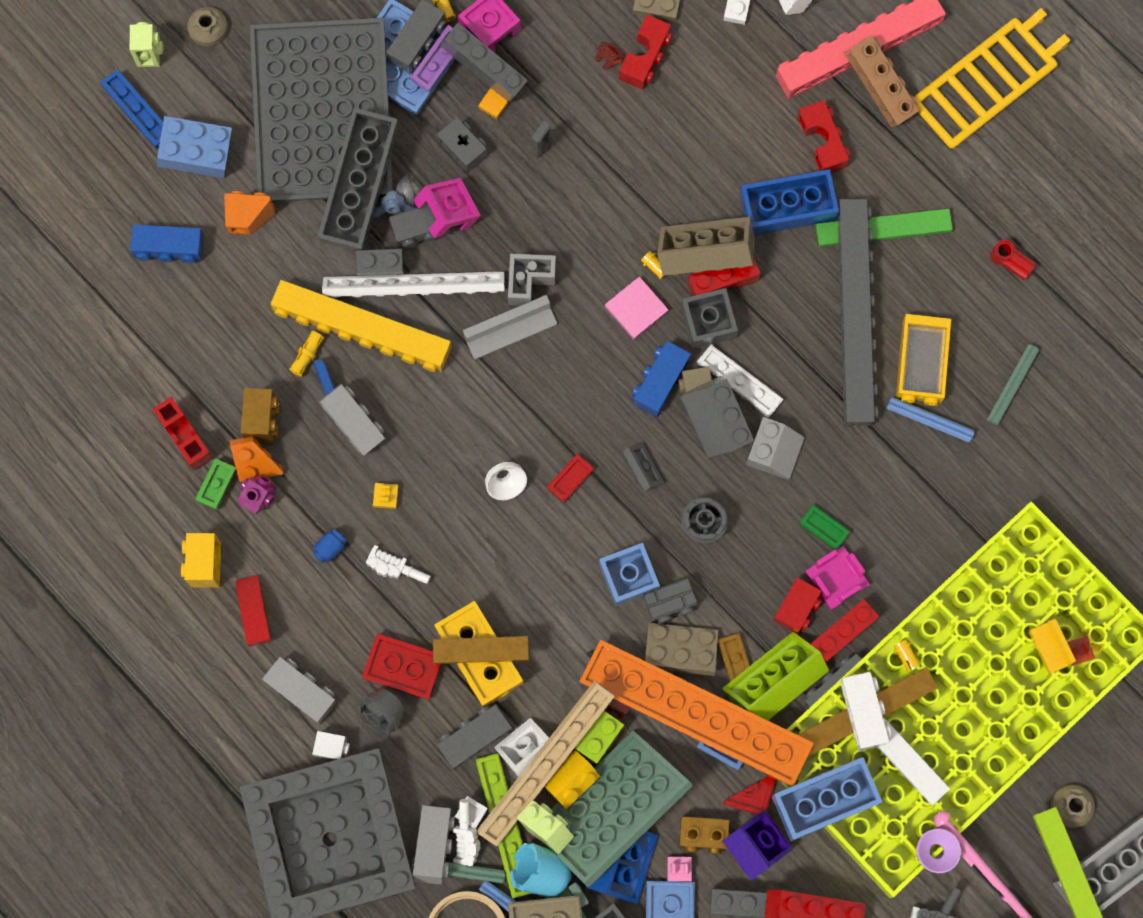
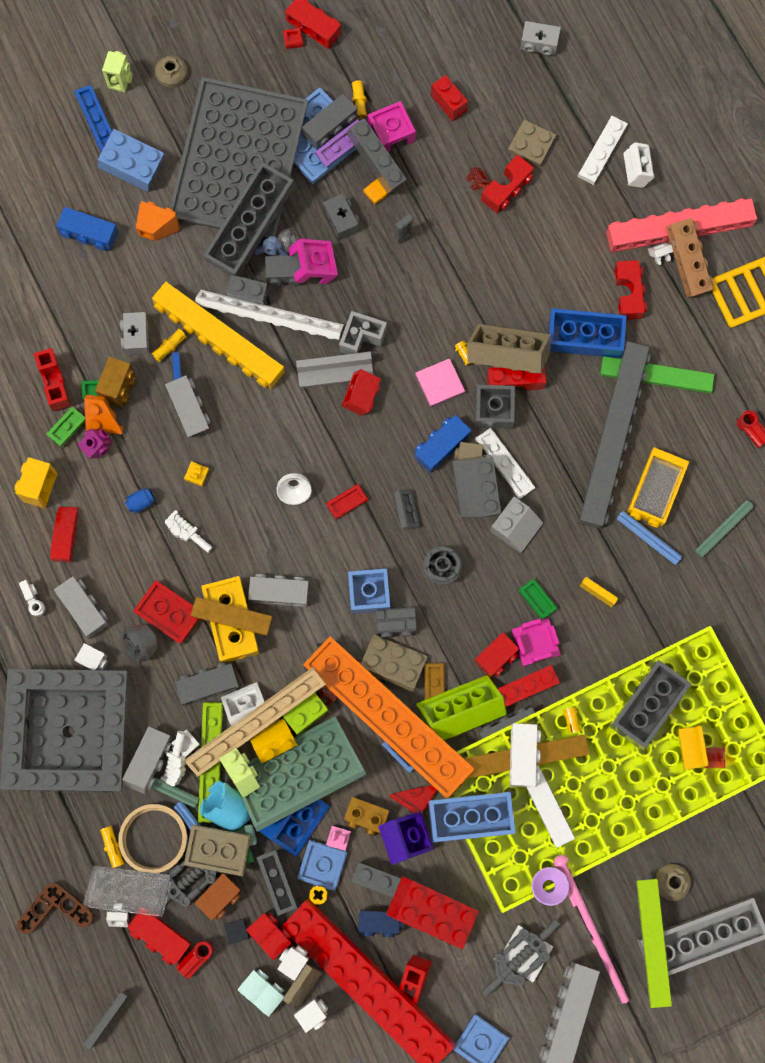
camera: 15 degrees right, 0 degrees up
(229, 431) = (88, 388): none -> green tile
(233, 690) = (29, 592): none -> white plate
(259, 338) = (136, 323): none -> light grey brick
(524, 604) = (278, 590): none -> light grey brick
(549, 345) = (361, 392): none -> red brick
(845, 81) = (659, 251): none -> white tile
(892, 499) = (598, 592): none -> yellow tile
(990, 612) = (650, 705): none -> dark grey brick

